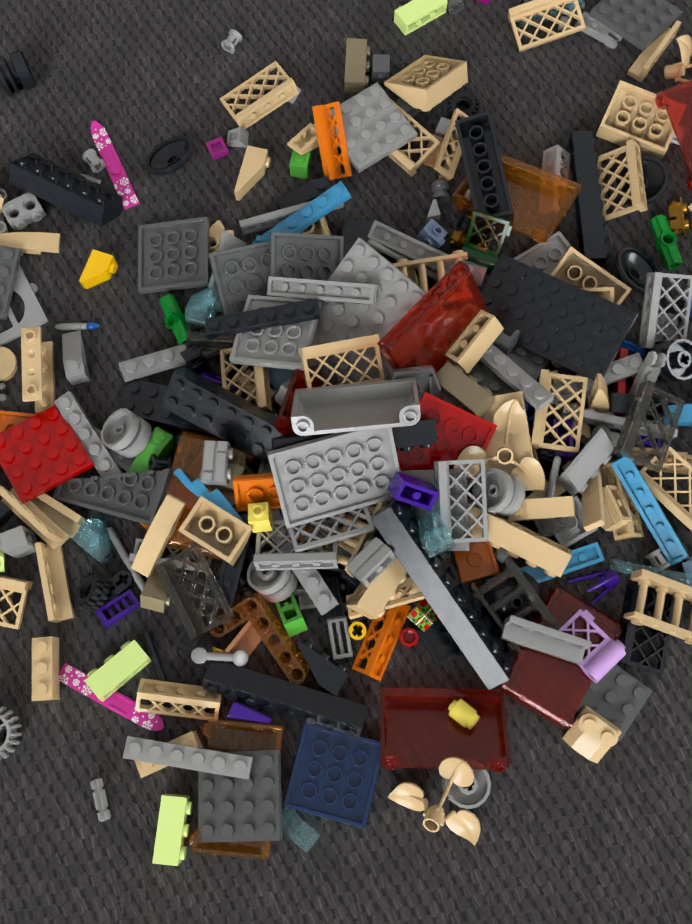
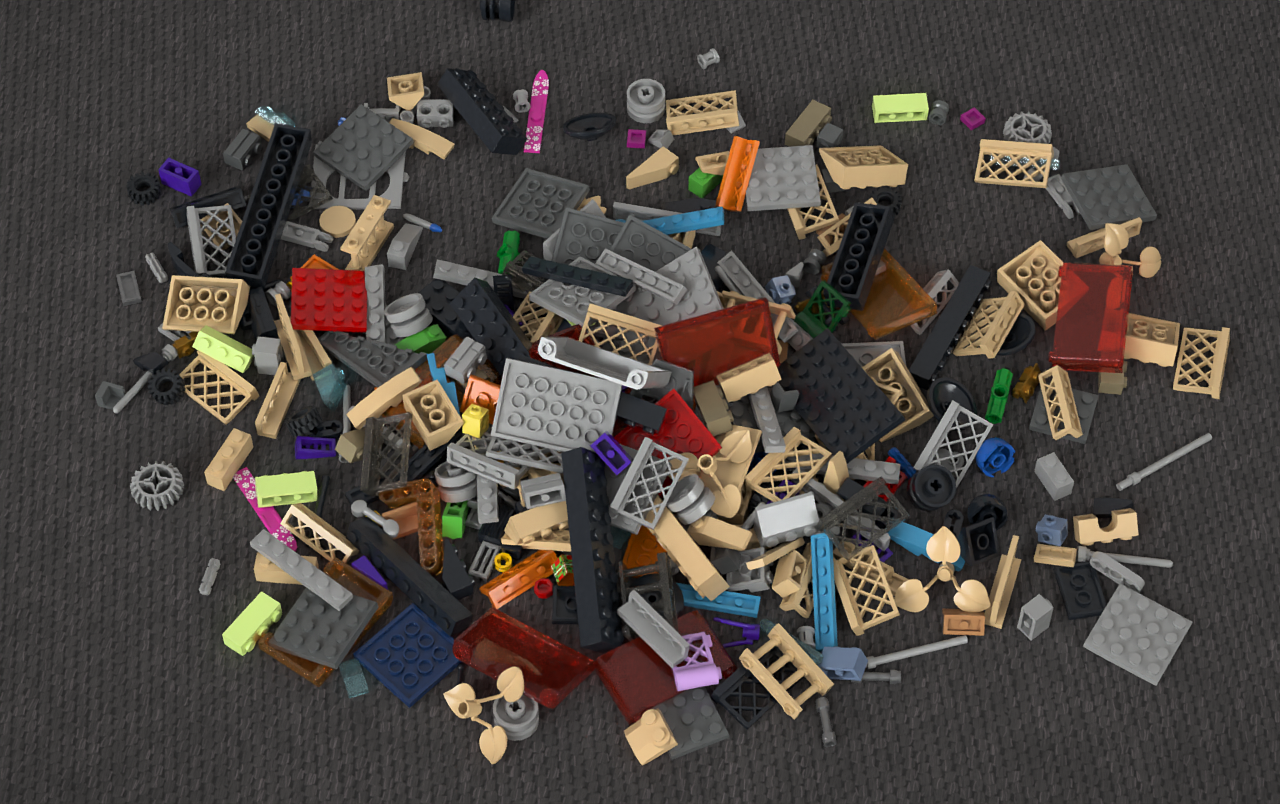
camera: 30 degrees right, 20 degrees down
(98, 269) = (468, 186): yellow slope -> none
(154, 460) = (419, 347): black bush -> none
(200, 307) = (534, 246): clear light blue slope -> none
(204, 107) = (646, 101): none -> light grey wheel
(434, 534) = (607, 494): clear light blue slope -> none
(463, 713) = (548, 659): light yellow brick -> none
(649, 369) = (897, 483): light grey hinge -> none

